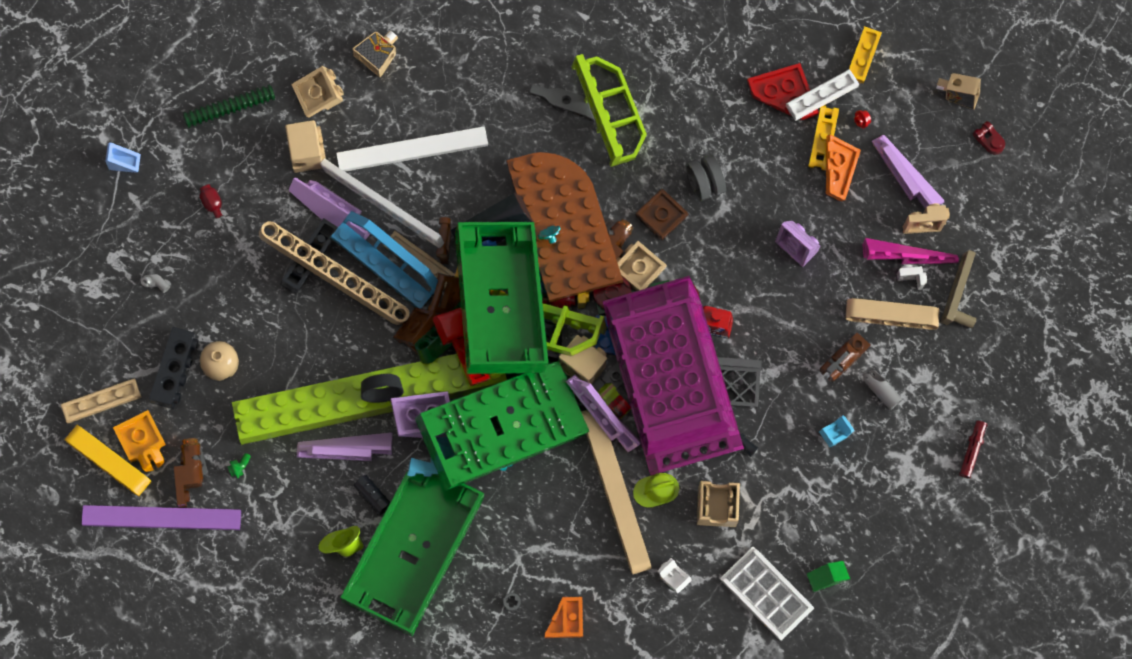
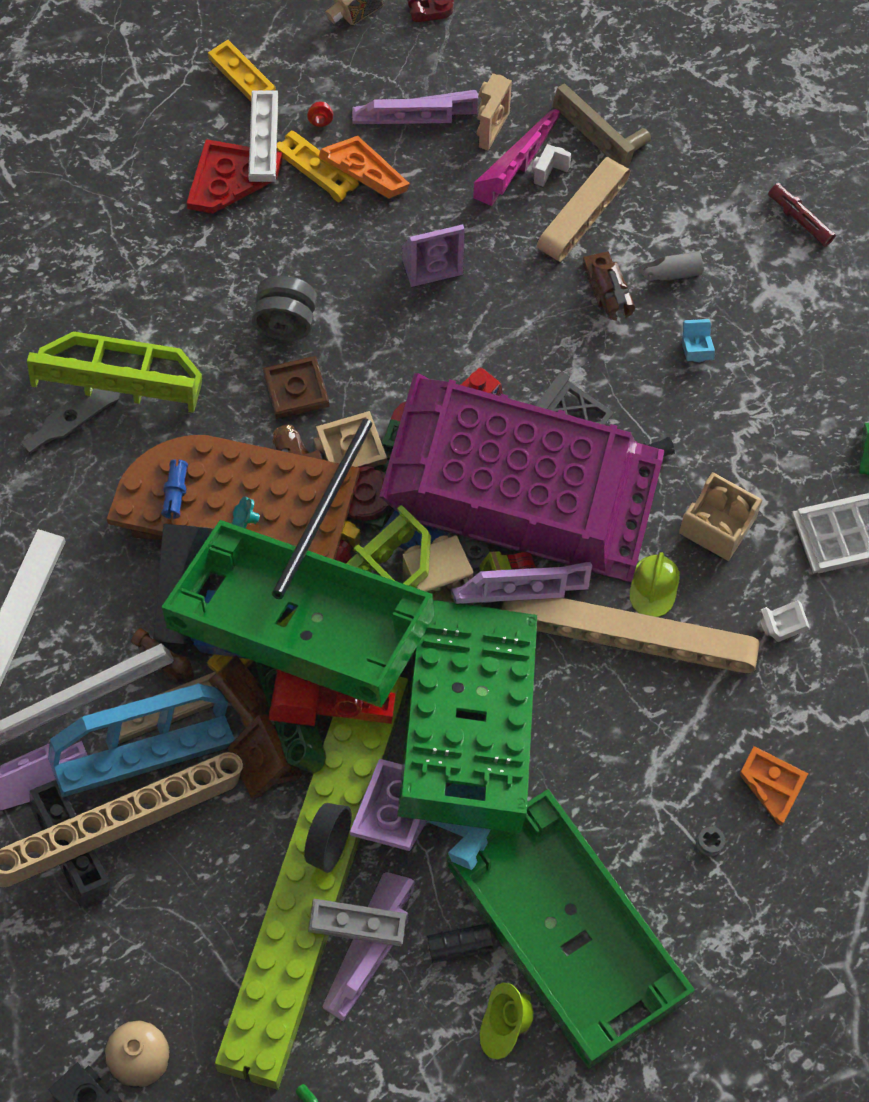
camera: 55 degrees left, 10 degrees down
(347, 432) = (357, 922): none -> light grey tile
(543, 186) = (174, 489): none -> blue pin
(575, 273) = (321, 510): none -> black piece

